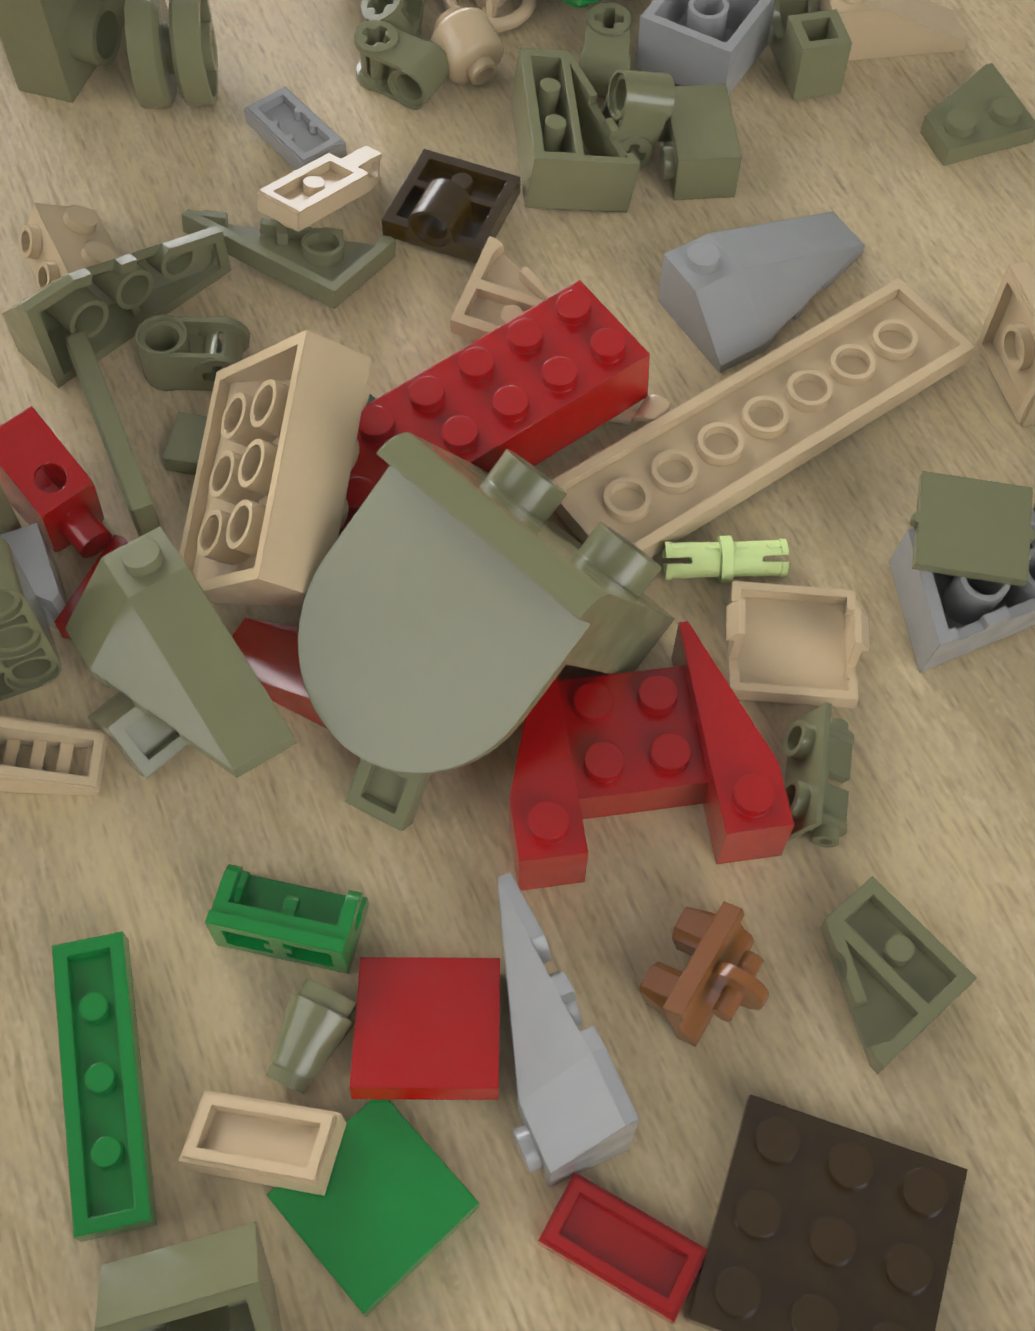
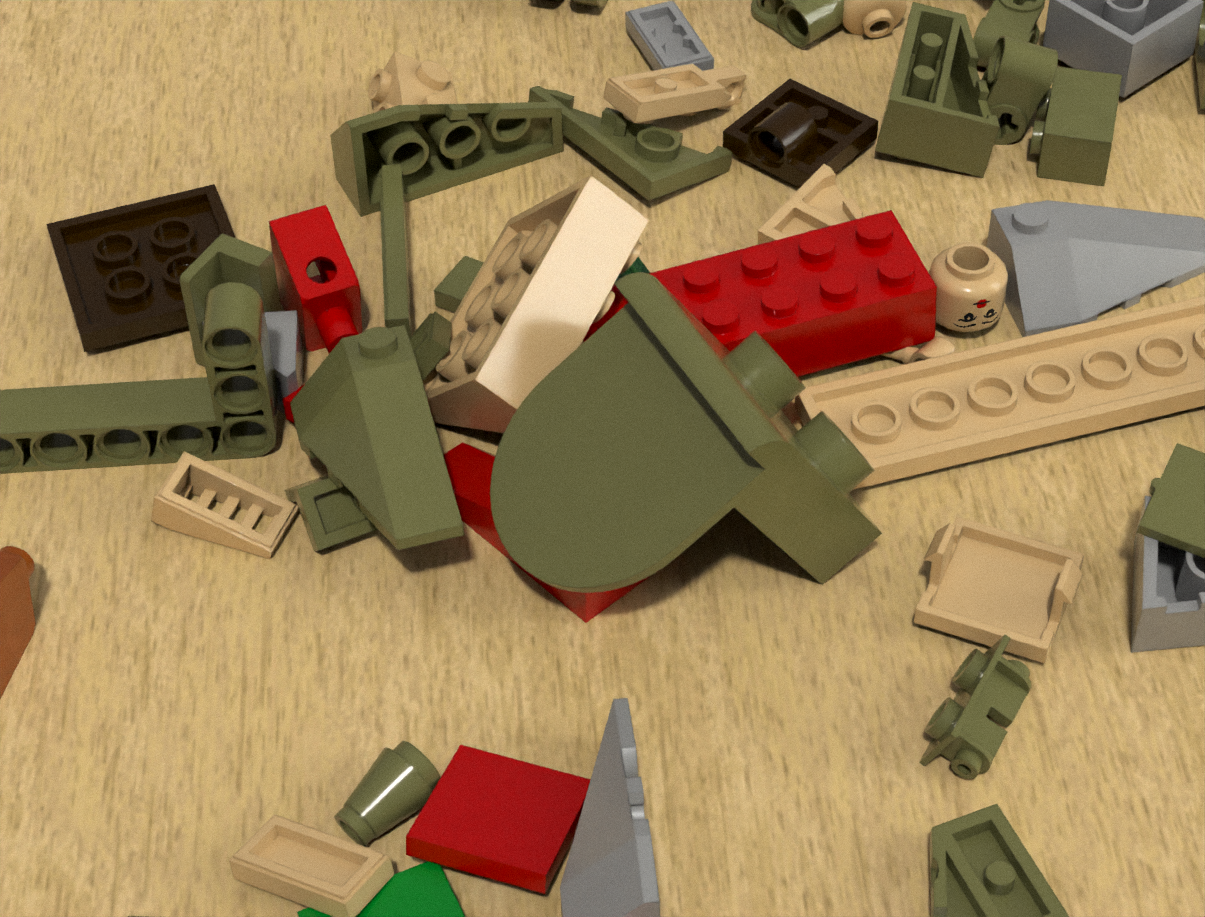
camera: 20 degrees right, 15 degrees down
(102, 1088) = (183, 786): green plate -> none
(182, 523) = (431, 342): none -> olive tile
(188, 350) = (484, 200): olive piece -> none
(286, 920) = (402, 700): green hinge -> none
(387, 794) = (542, 612): olive plate -> none
(639, 748) = (793, 639): red wedge -> none
(669, 333) = (969, 287): none -> tan head
(716, 977) = (795, 846): dark orange hips -> none
(725, 559) = (958, 498): yellowish green pin -> none

